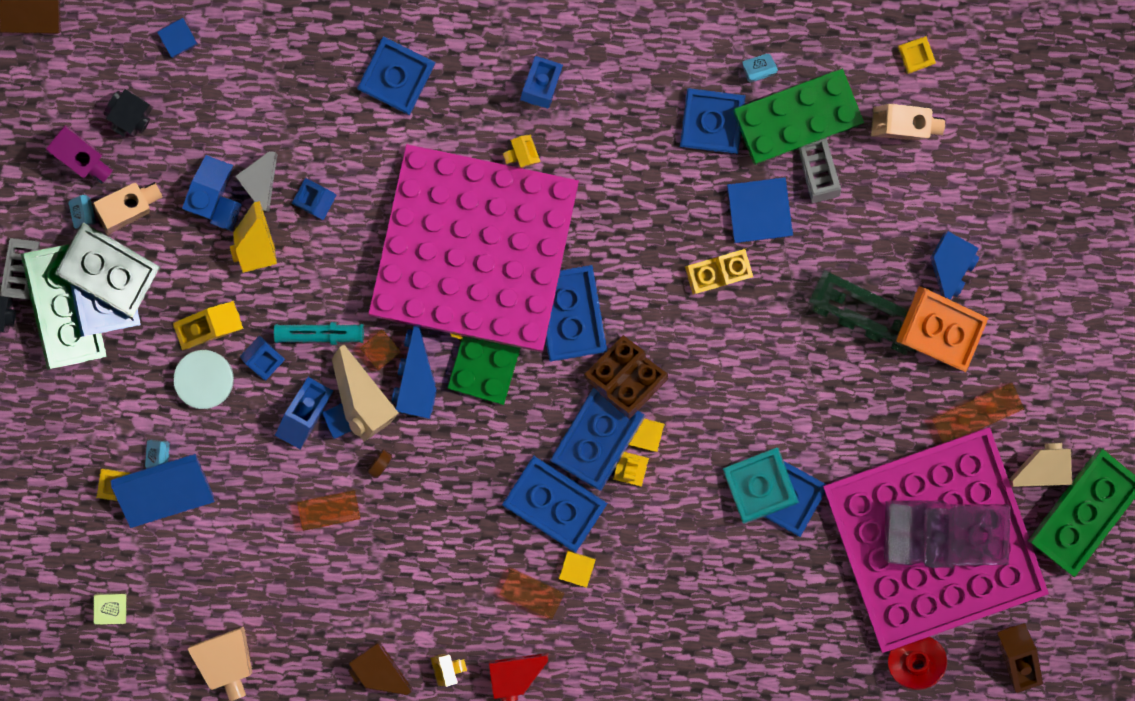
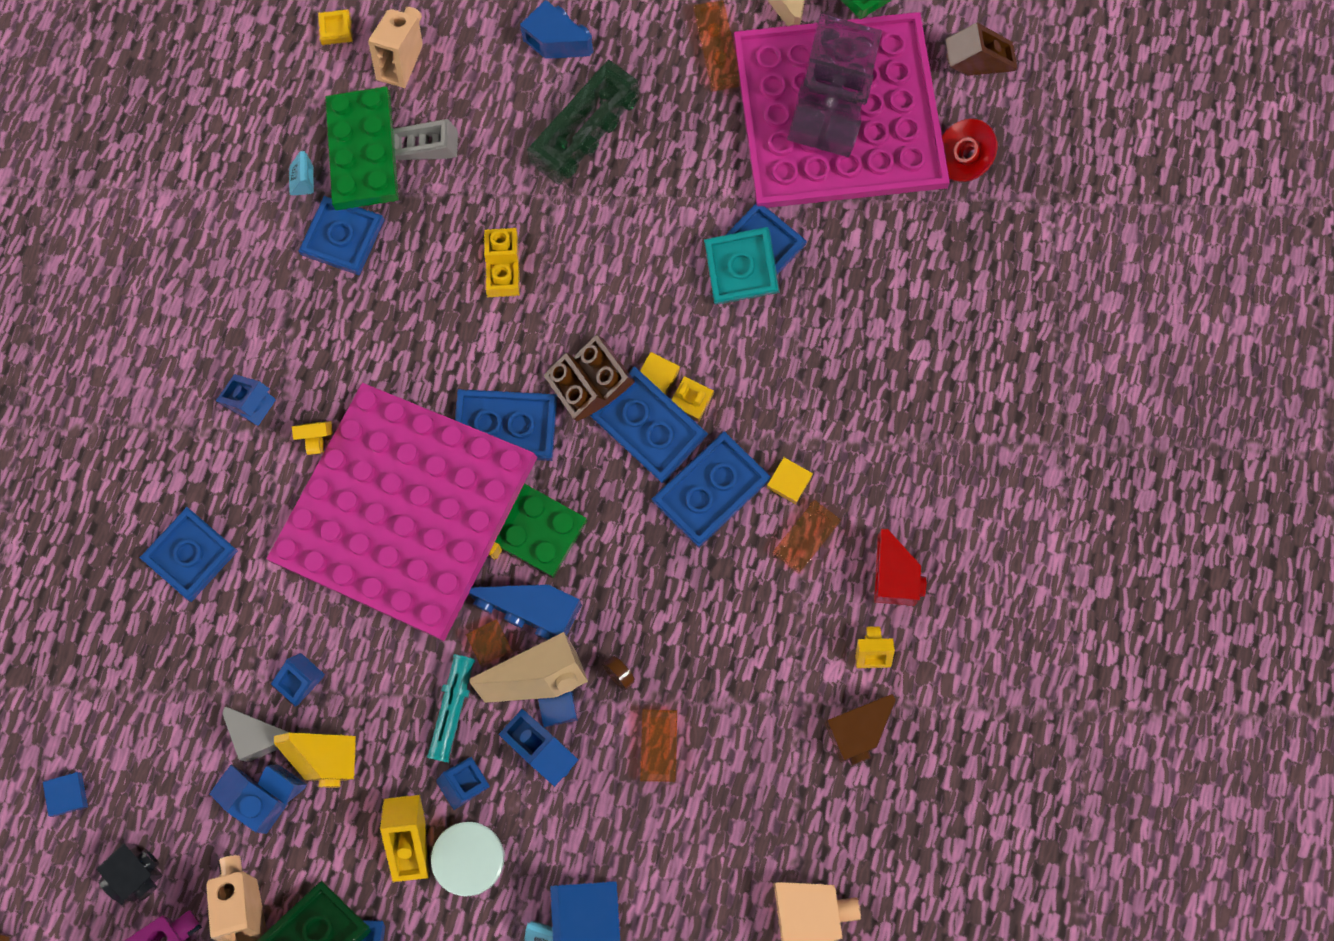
camera: 75 degrees left, 15 degrees down
(759, 210) = (448, 208): blue tile -> none
(942, 329) = (619, 51): orange tile -> none

